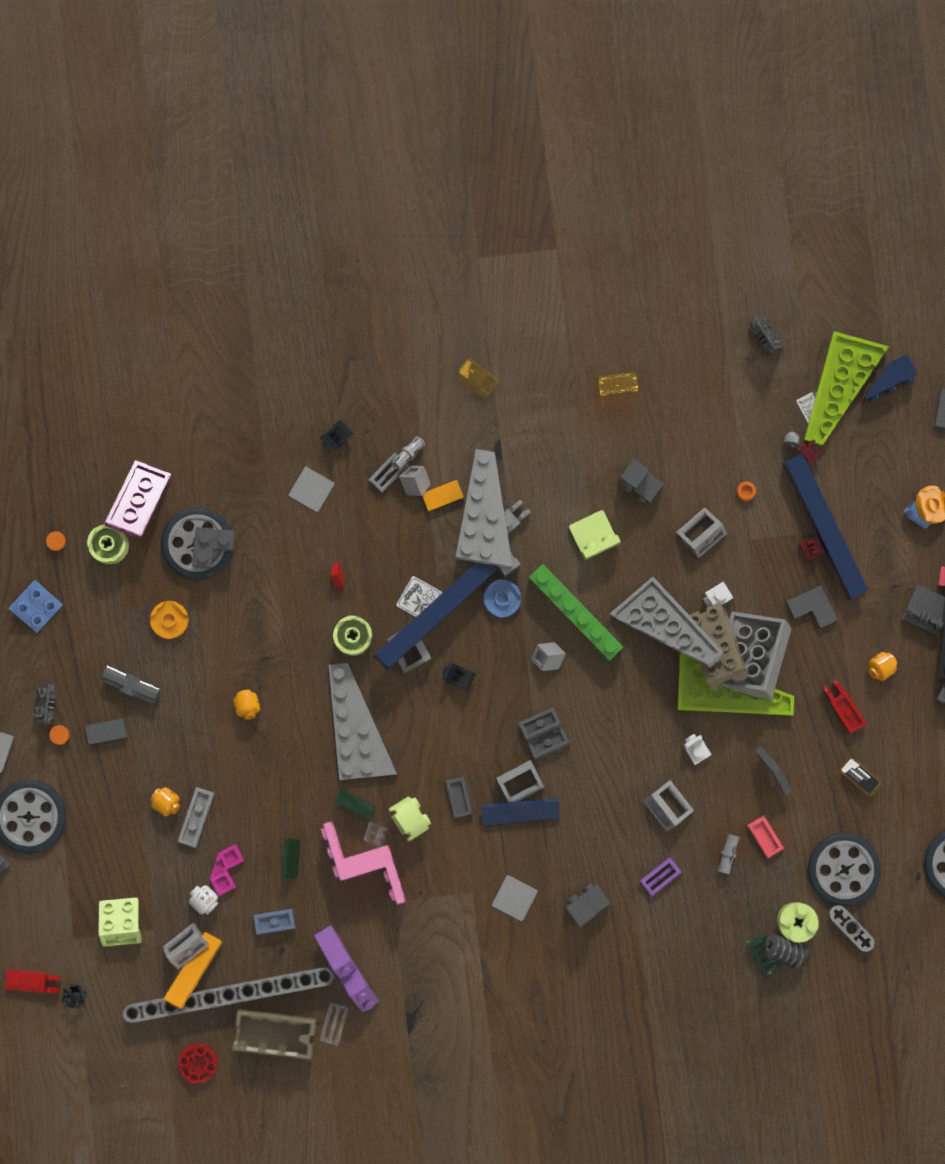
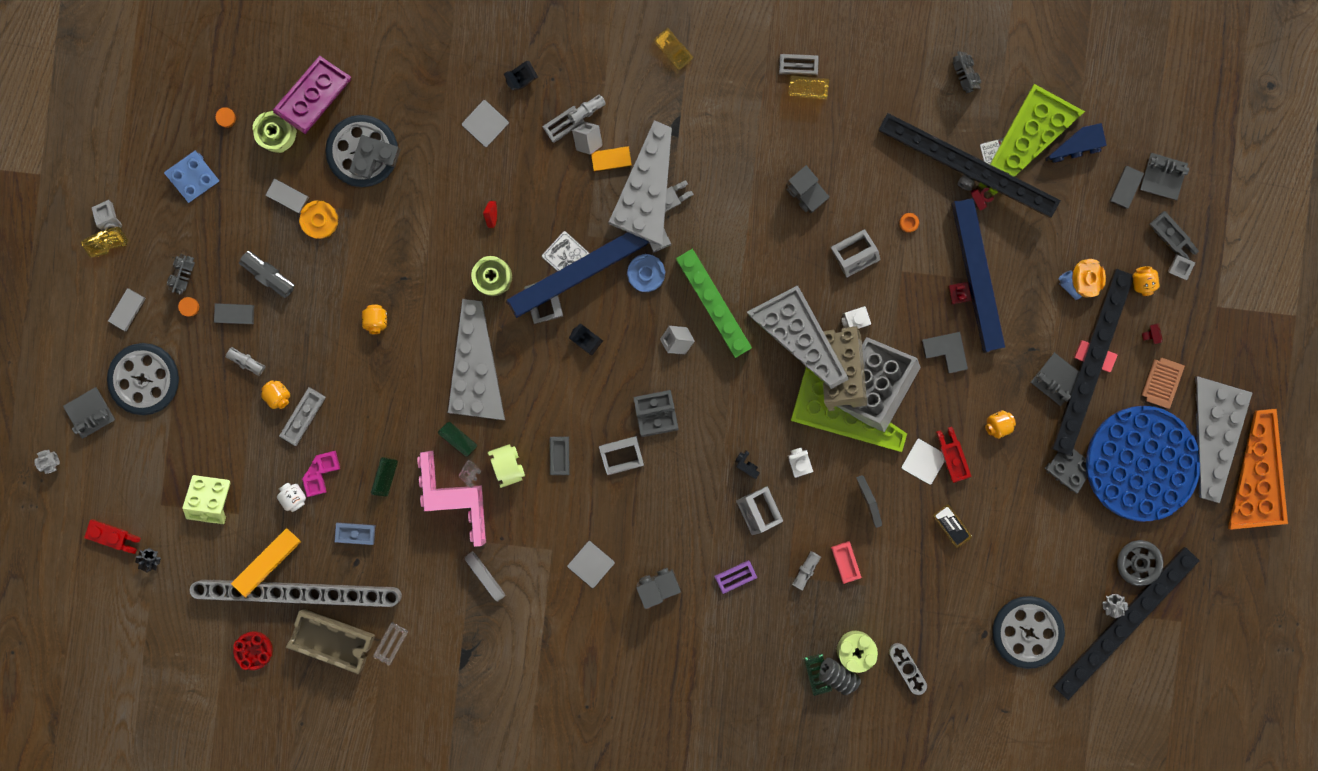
camera: 15 degrees right, 5 degrees up
(127, 775) = (245, 361): none -> light grey pin
(133, 604) = (287, 196): none -> light grey tile
(188, 948) = (265, 541): light grey tile -> none
(346, 969) = (411, 595): medium lavender arch -> none
(412, 933) = (484, 576): none -> light grey beam
(520, 811) = (615, 483): dark blue tile -> none
(594, 535) = (749, 231): yellowish green bracket -> none
(603, 364) = (782, 64): none -> light grey tile
(647, 766) = (748, 468): none -> black bracket
(790, 423) = (969, 165): none -> black plate
(817, 720) = (924, 461): none -> white sticker
(867, 855) = (895, 593): wedge -> none

